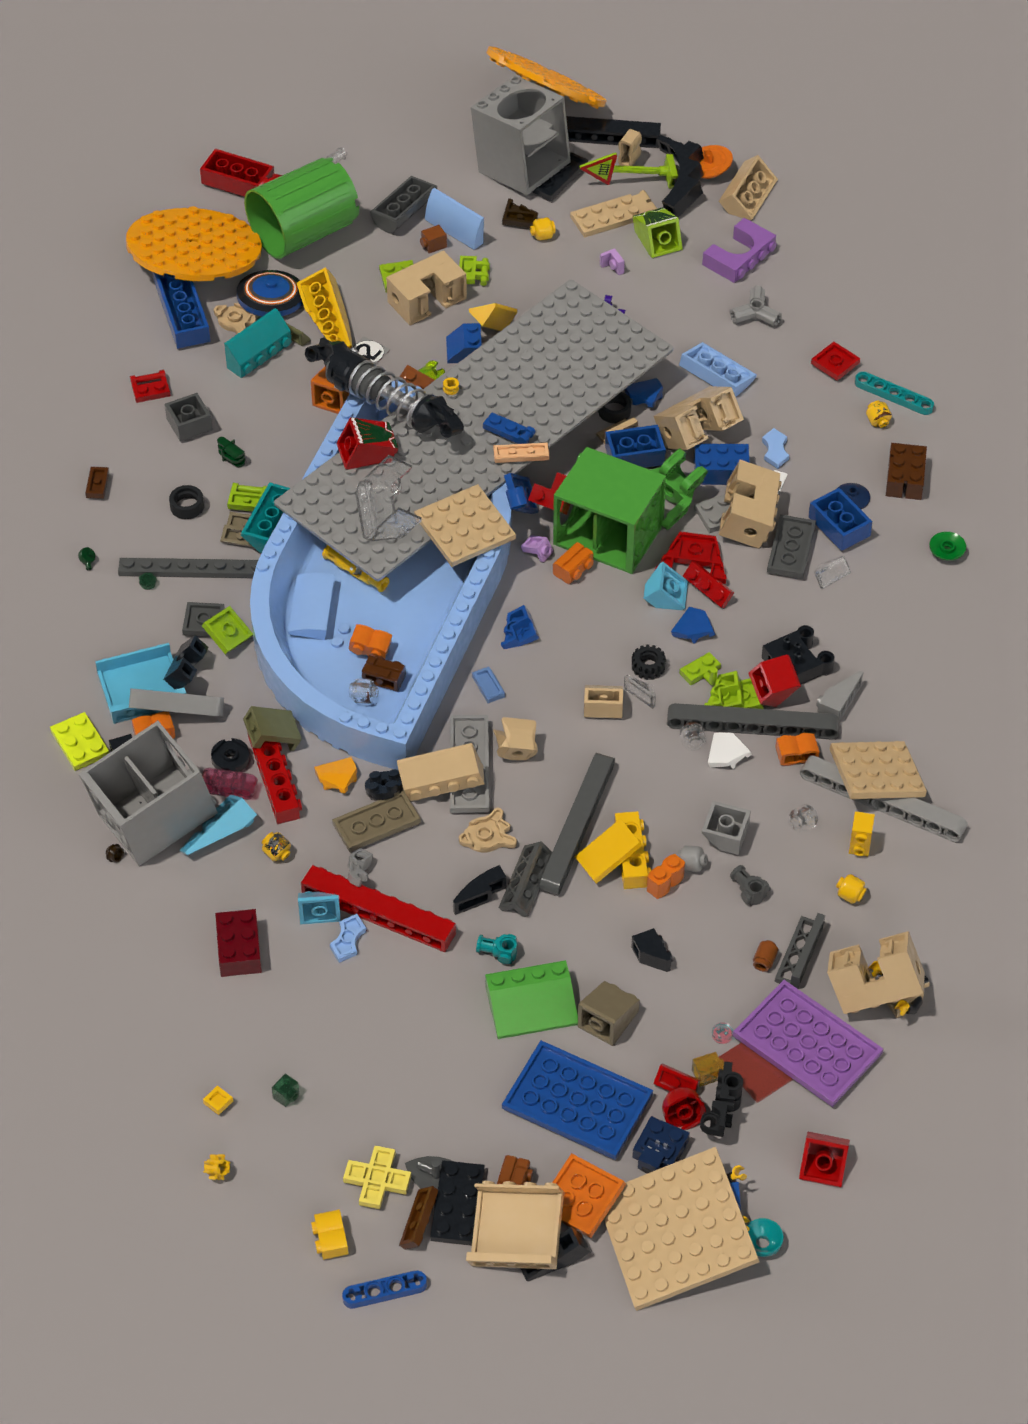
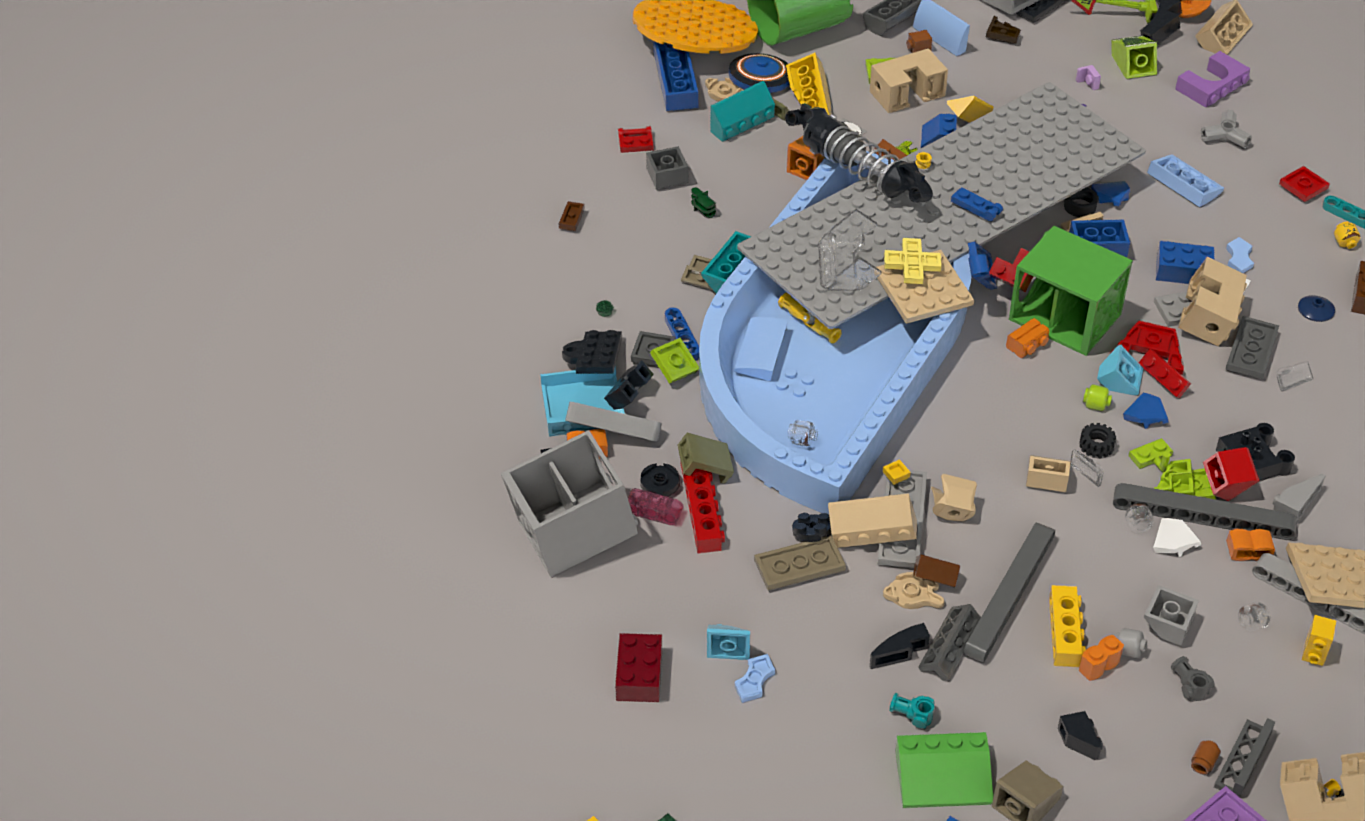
camera: 10 degrees right, 5 degrees down
(79, 741) = (510, 445): neon yellow plate -> none
(87, 556) = (550, 280): dark green piece -> none
(114, 853) = (527, 560): dark brown plate -> none
(146, 631) = (594, 353): none -> black plate
(186, 512) = (653, 251): black tyre -> none
(187, 567) = (643, 300): dark grey plate -> none
(231, 817) = (651, 539): medium azure wedge -> none
(233, 598) = (684, 333): none -> blue beam
(244, 497) = (709, 243): lime plate -> none
(276, 846) = (693, 575): head -> none
(337, 774) = (765, 511): light orange slope -> none
(357, 864) = (774, 604): light grey piece -> none
(366, 443) = (833, 199): red slope -> none
(370, 641) = (815, 388): orange brick -> none
(383, 909) = (795, 653): red brick -> none
(384, 672) = (826, 418): reddish brown brick -> none
(450, 501) = (912, 260): none -> light yellow plate
(458, 719) = (896, 472): none -> yellow plate
(470, 264) = (953, 67): lime plate -> none
(488, 684) = (930, 443): medium blue tile -> none
(506, 813) = (936, 570): none -> reddish brown hinge
(519, 628) = (967, 393): blue slope -> none
(521, 452) = (986, 226): light nougat tile -> none
(538, 545) = (994, 318): lavender bracket -> none
(542, 228) = (1024, 43): yellow head -> none
(608, 851) = (1041, 623): yellow tile -> none
(611, 213) = (1089, 38): tan hinge -> none
(645, 617) = (1097, 397): none -> lime head
(678, 486) = (1143, 281): bright green piece -> none
(707, 410) = (1157, 218): tan piece -> none
(840, 519) = (1305, 326): blue brick -> none
(851, 888) = (1304, 697): yellow head -> none

